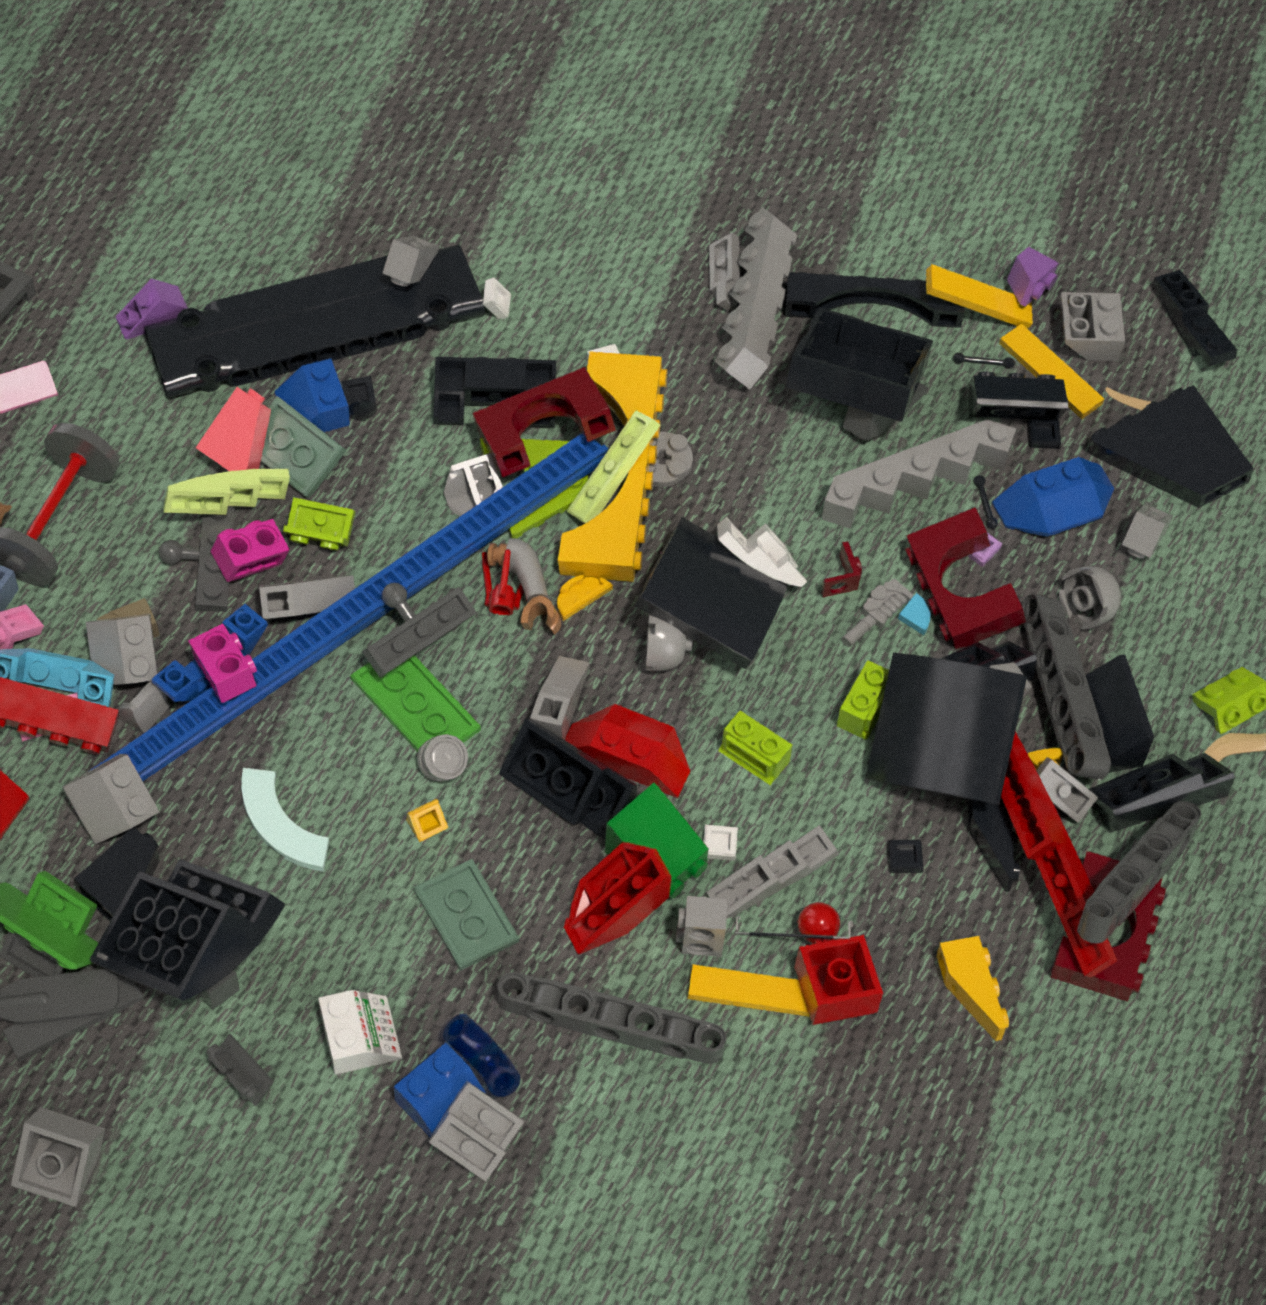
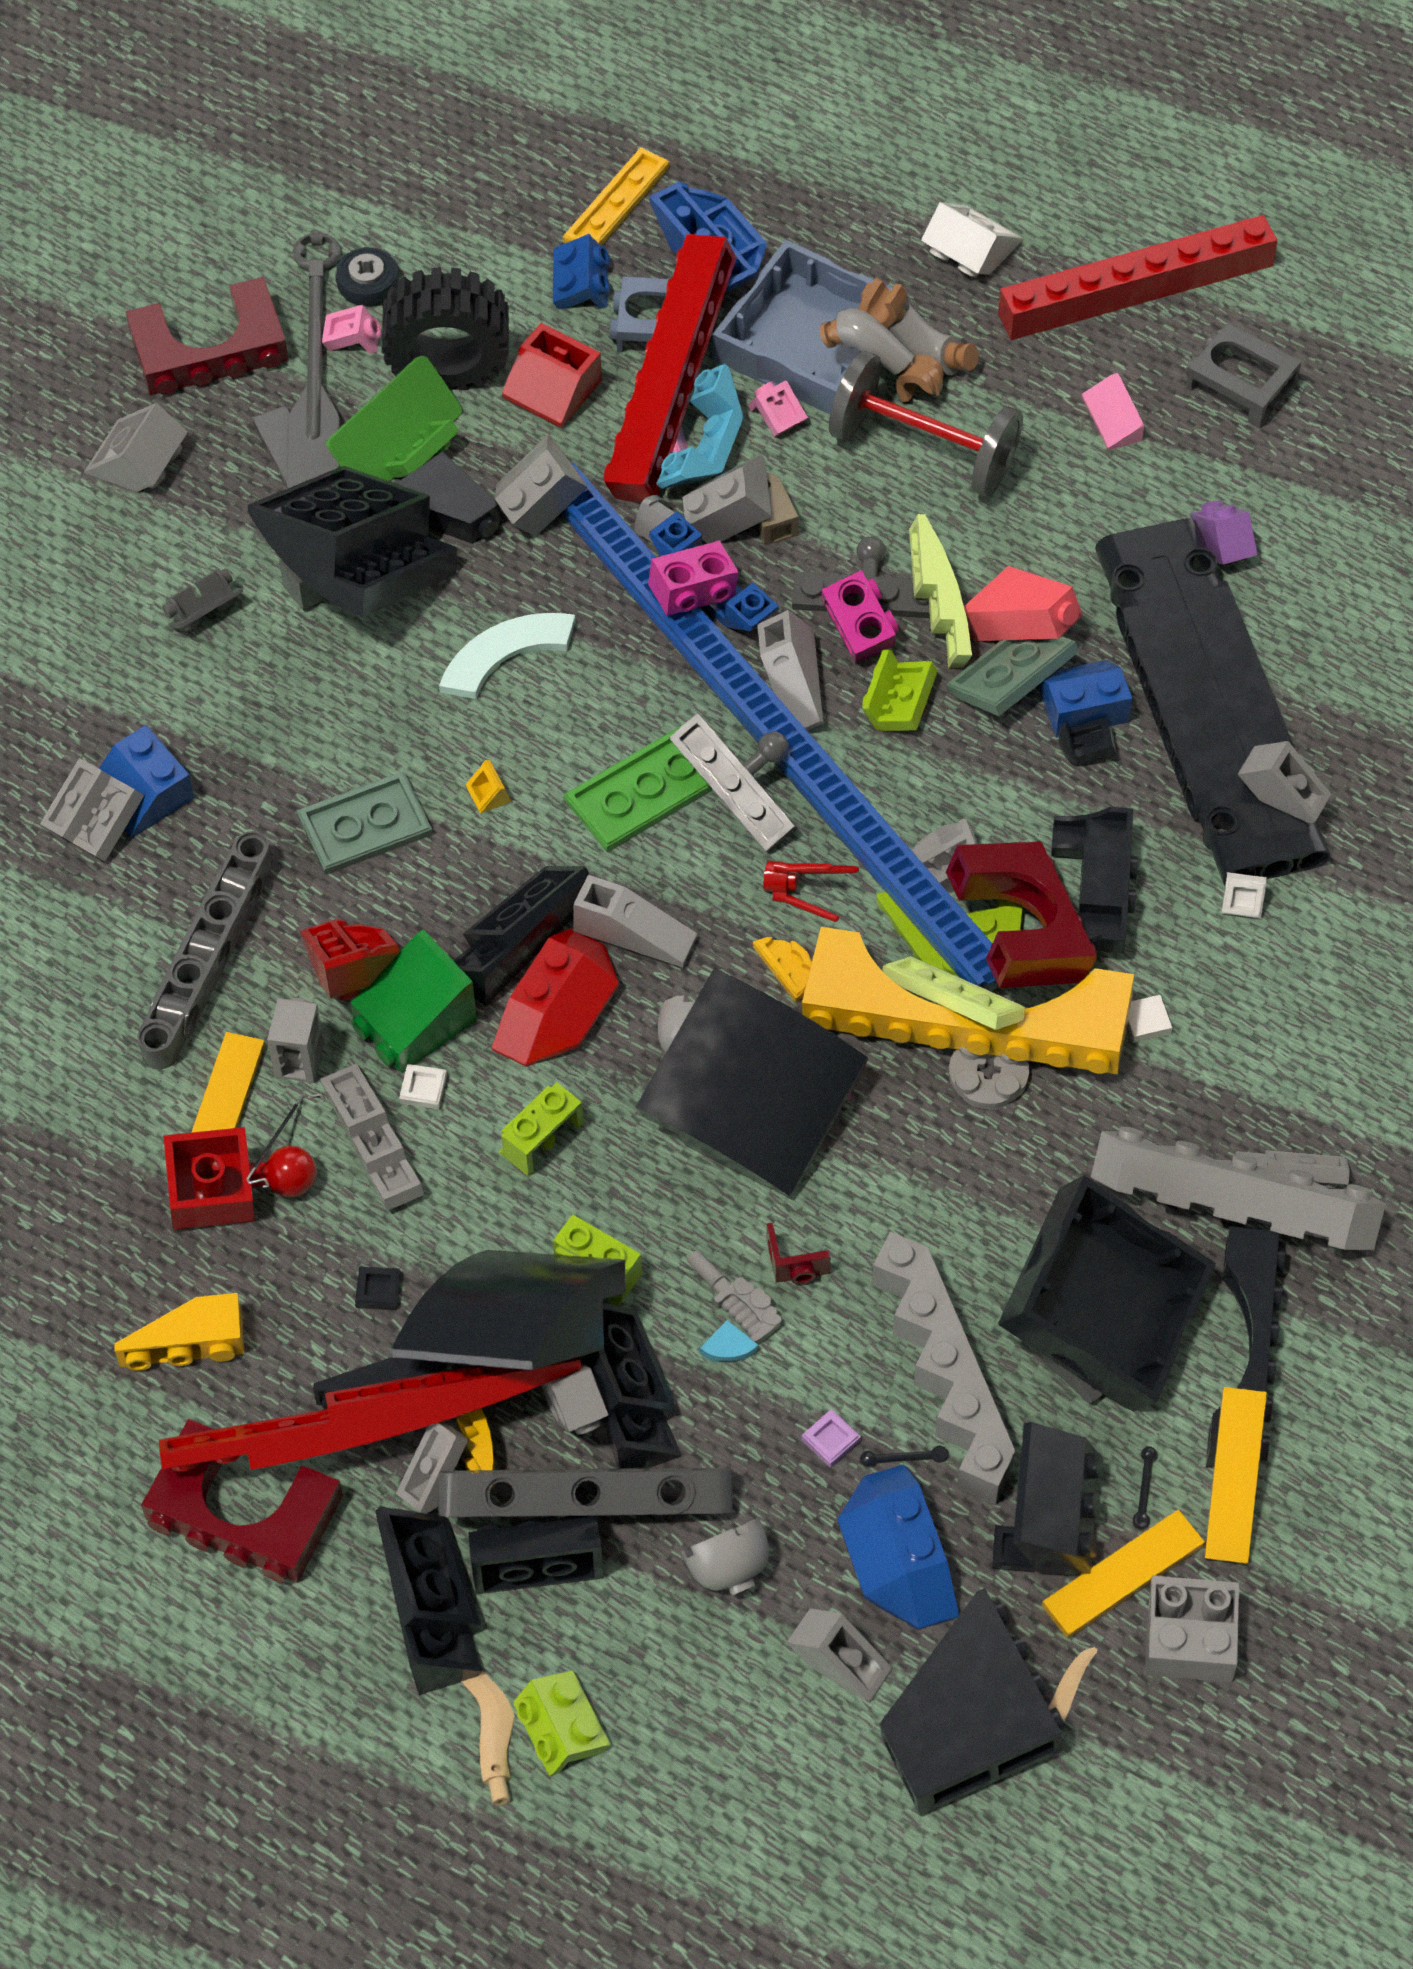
camera: 100 degrees right, 0 degrees up
(358, 1030) = (230, 708): white slope -> none
(442, 758) = (559, 799): light grey wheel -> none
(482, 1054) = (180, 826): clear blue cylinder -> none
(527, 567) = (812, 900): piece -> none
(762, 552) = (824, 1153): white slope -> none
(963, 618) = (805, 1364): dark red arch -> none
(1032, 275) = (1282, 1557): medium lavender slope -> none
(1138, 872) = (284, 1519): dark grey beam -> none
(1191, 318) = (1209, 1783): black slope -> none

